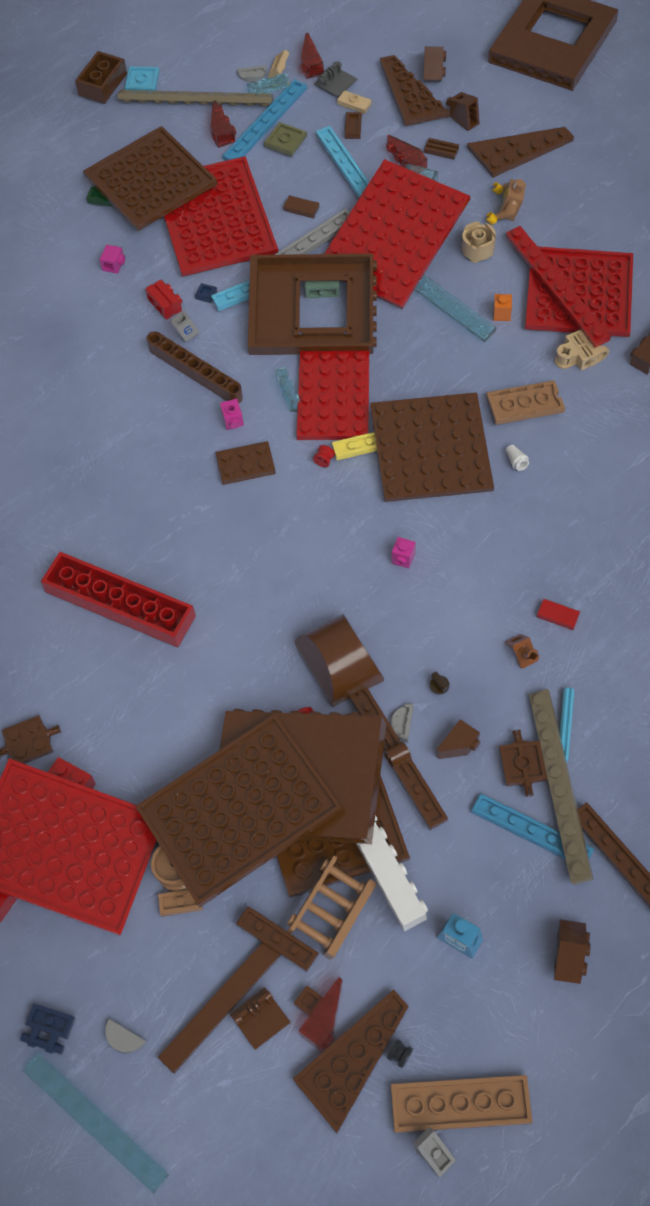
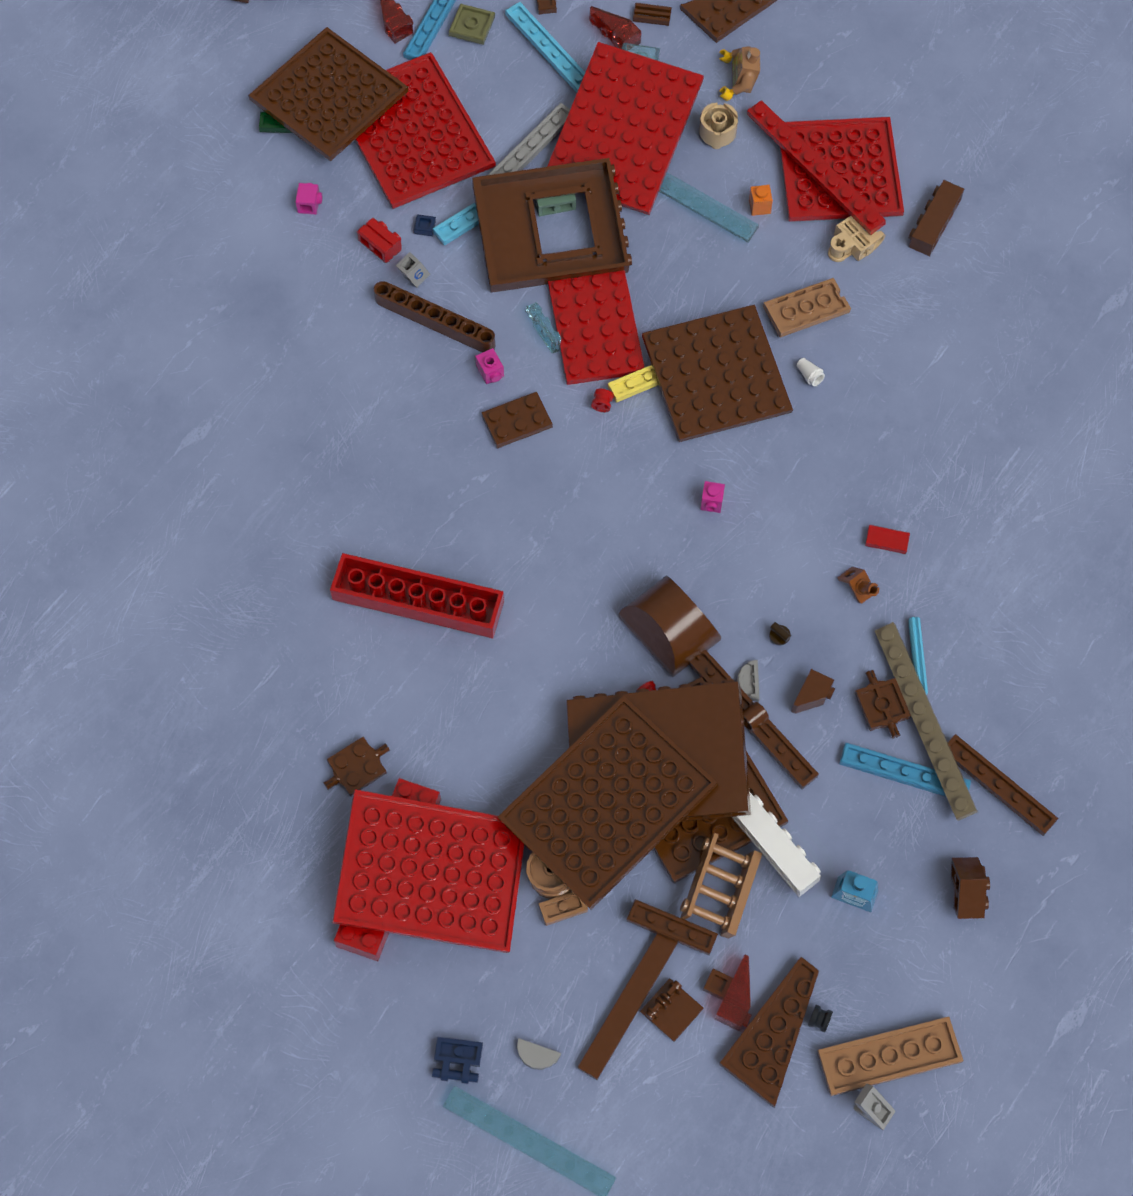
camera: 15 degrees left, 5 degrees up
(301, 206) = (508, 105): reddish brown tile -> none

